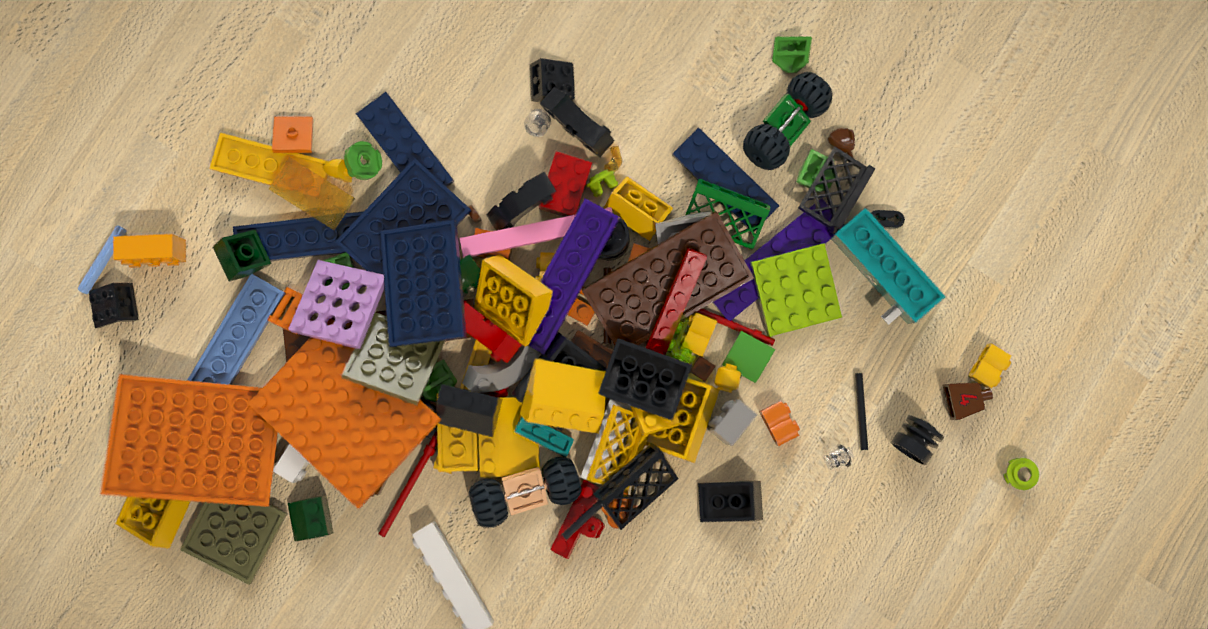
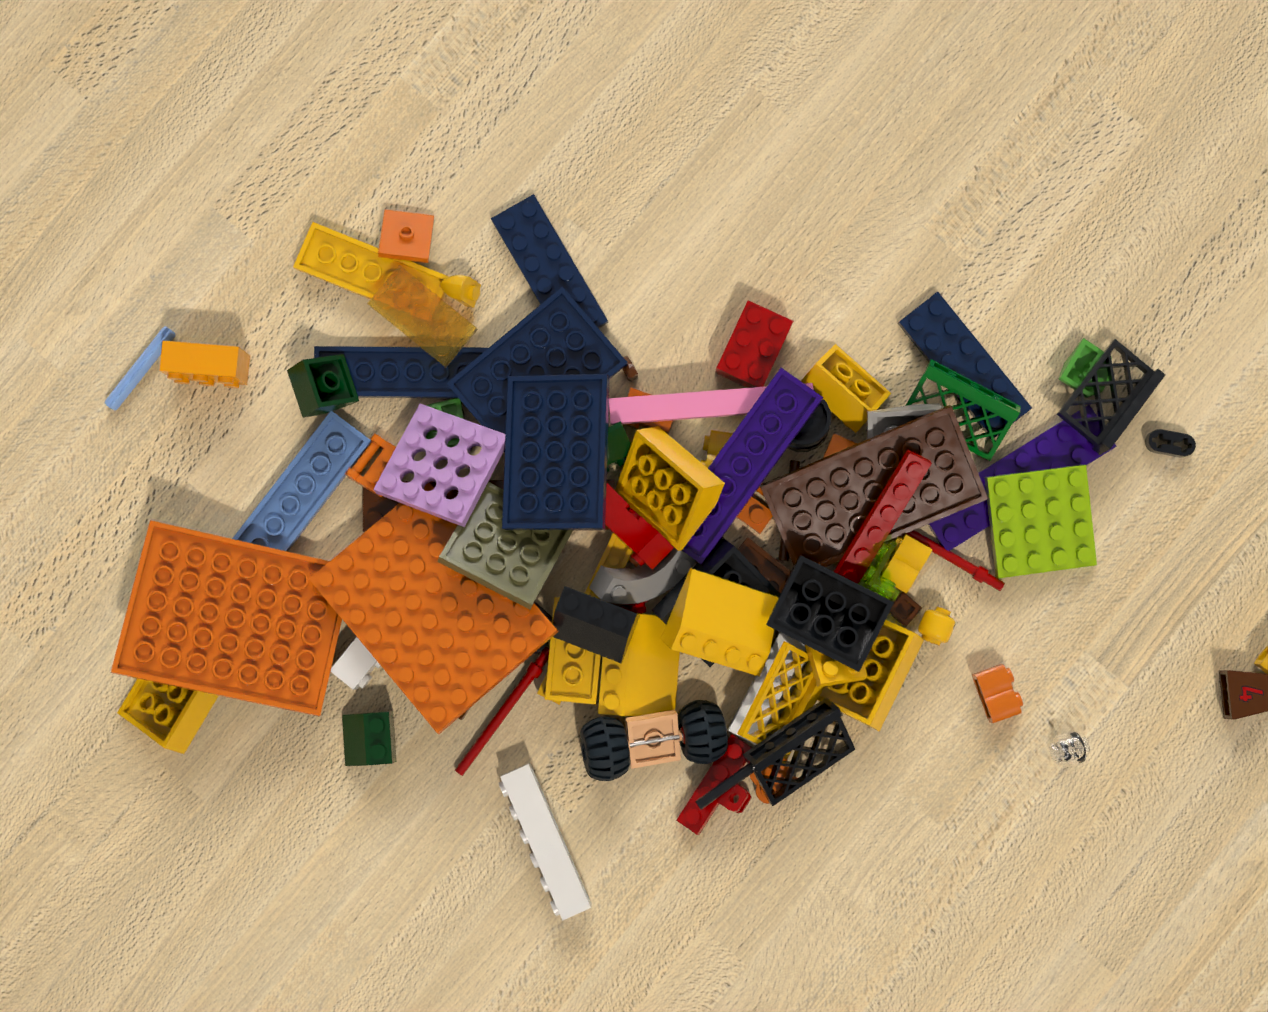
camera: 15 degrees right, 0 degrees up
(113, 304) = (147, 428): black bracket -> none
(234, 537) = (268, 750): olive plate -> none
(354, 165) = (481, 281): bright green plate -> none
(440, 375) = (561, 575): bright green slope -> none
(516, 205) = (689, 364): black brick -> none
(537, 122) = (727, 259): clear head -> none
(545, 436) = (687, 671): teal plate -> none
(547, 74) = (752, 205): black bracket -> none
(576, 122) = (779, 266): black brick -> none
(608, 178) = (811, 344): lime piece -> none
(616, 160) = (823, 323): clear yellow arm -> none
(730, 501) = (920, 787): black slope -> none
(731, 422) = (936, 683): light grey brick -> none
(749, 356) = (968, 600): bright green slope -> none
(770, 142) = (1031, 323): black plate -> none
(791, 53) = (1073, 208): bright green slope -> none
(843, 139) = (1127, 331): reddish brown piece -> none
(861, 411) = (1107, 690): black bar -> none
(888, 268) = (1166, 509): teal piece -> none
(919, 436) = (1180, 735): black wheel -> none

